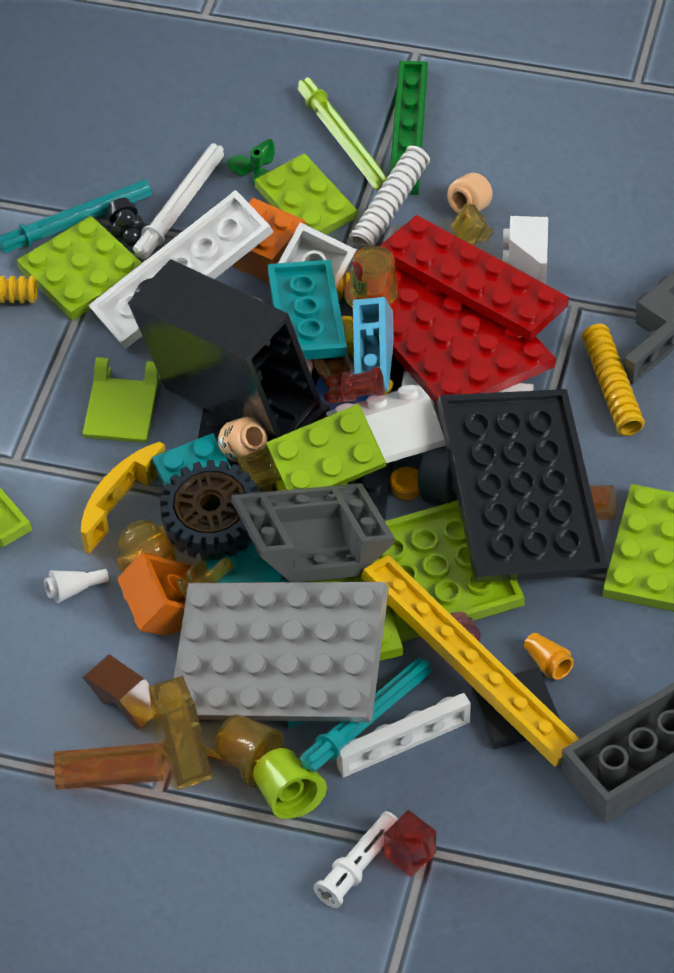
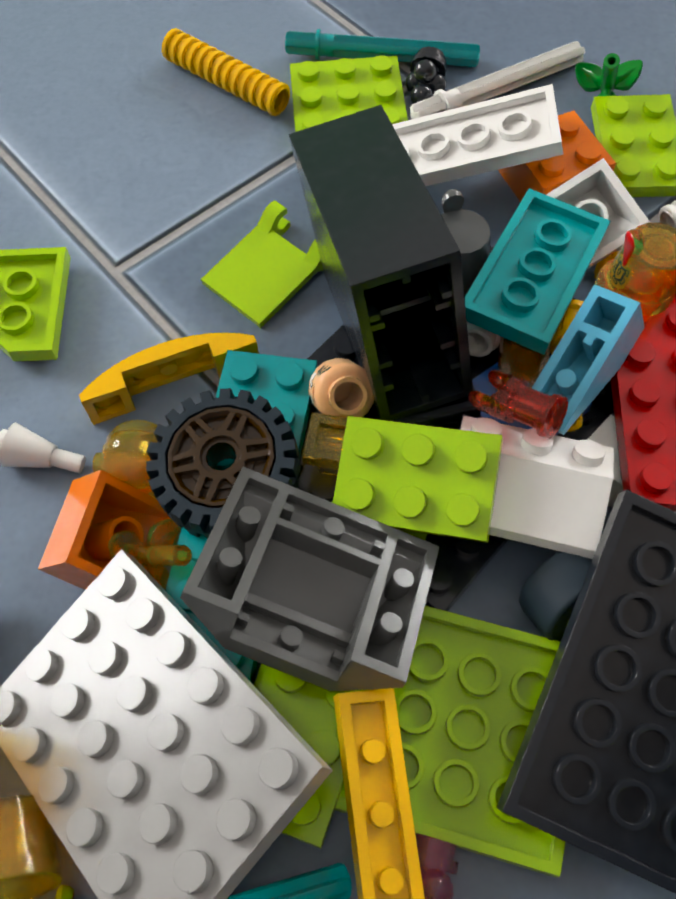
camera: 35 degrees right, 10 degrees up
(404, 483) = (514, 565): light orange tile -> none

